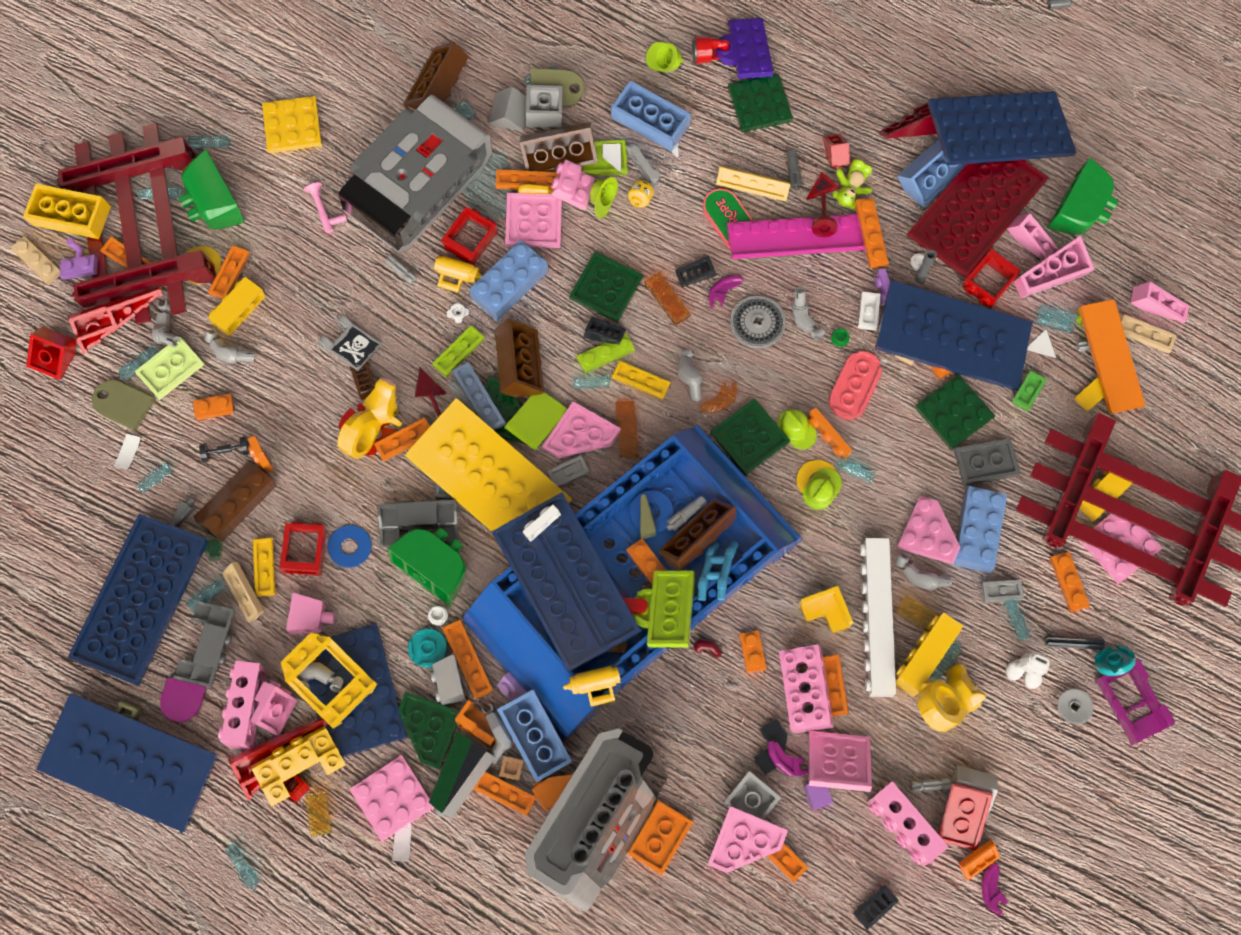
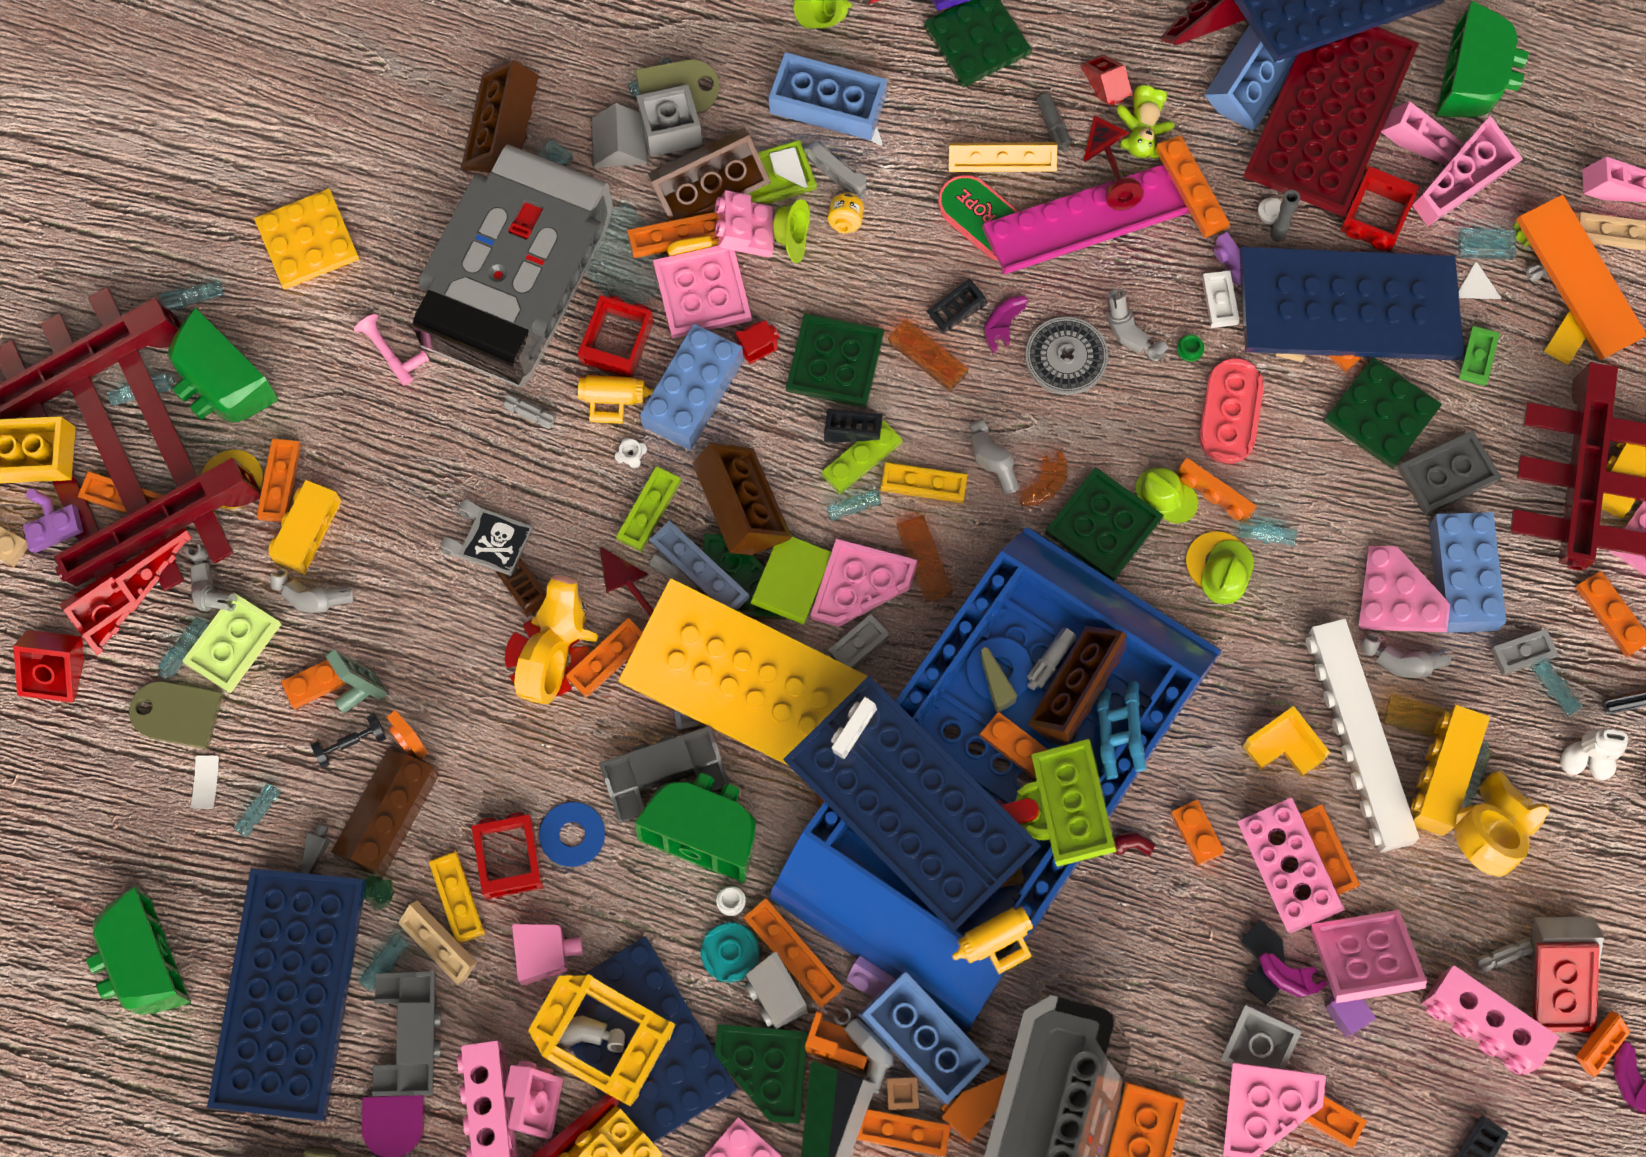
camera: 10 degrees left, 0 degrees up
(51, 549) = (136, 956): none -> green hips
(243, 412) = (363, 681): none -> sand green piece
(559, 261) = (757, 340): none -> red window

